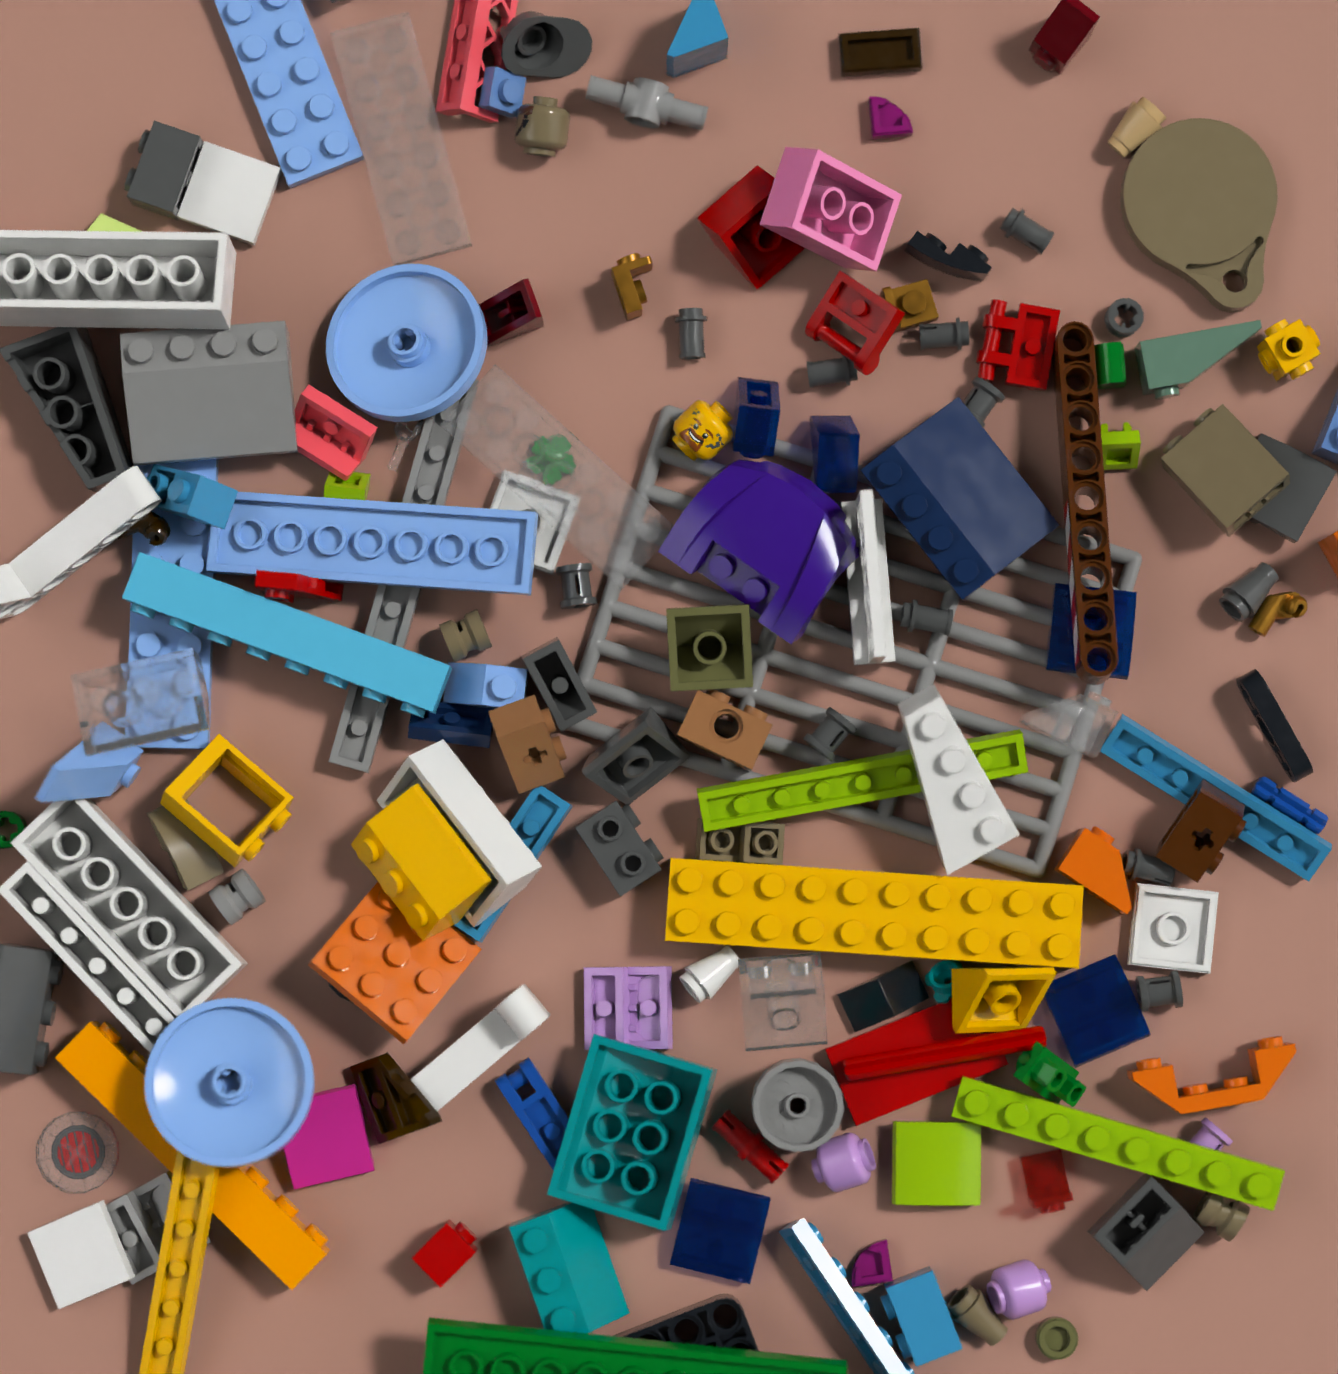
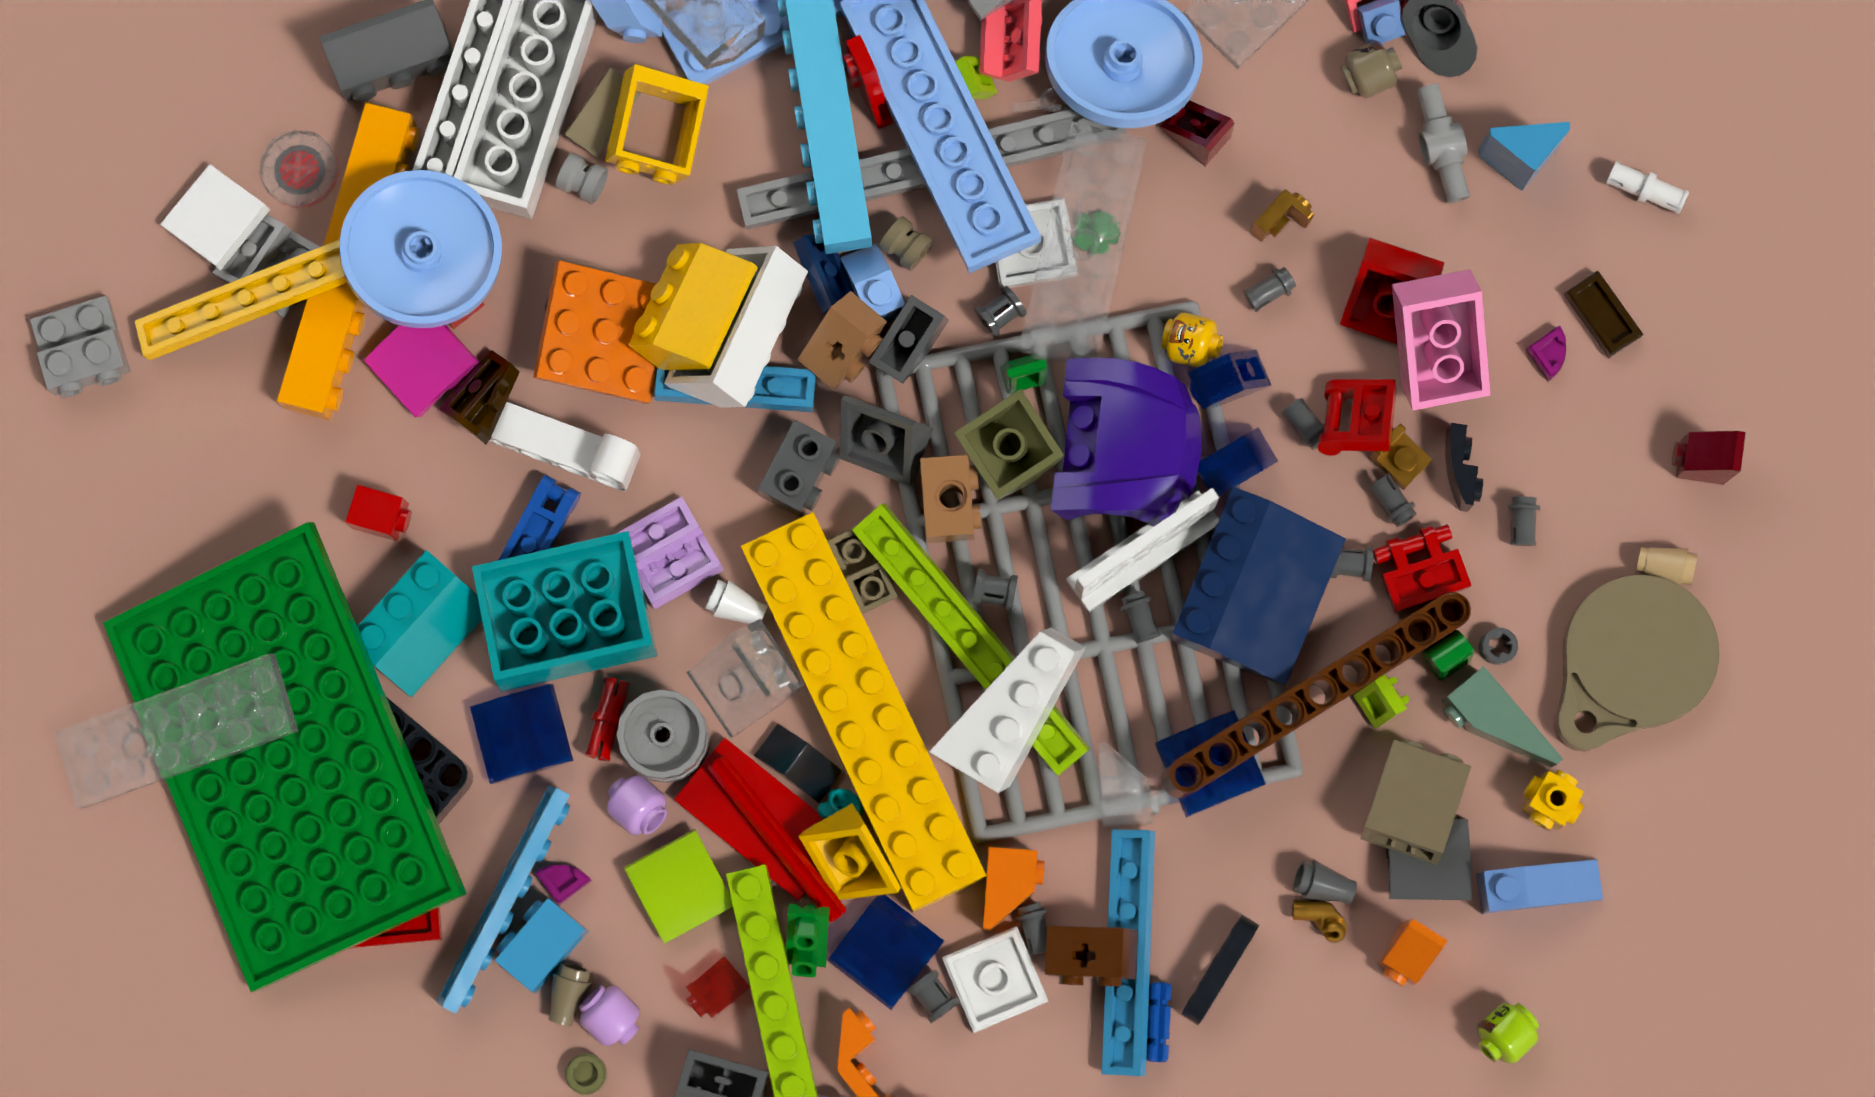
camera: 65 degrees right, 5 degrees down
(646, 596) = (1024, 373): none -> green slope

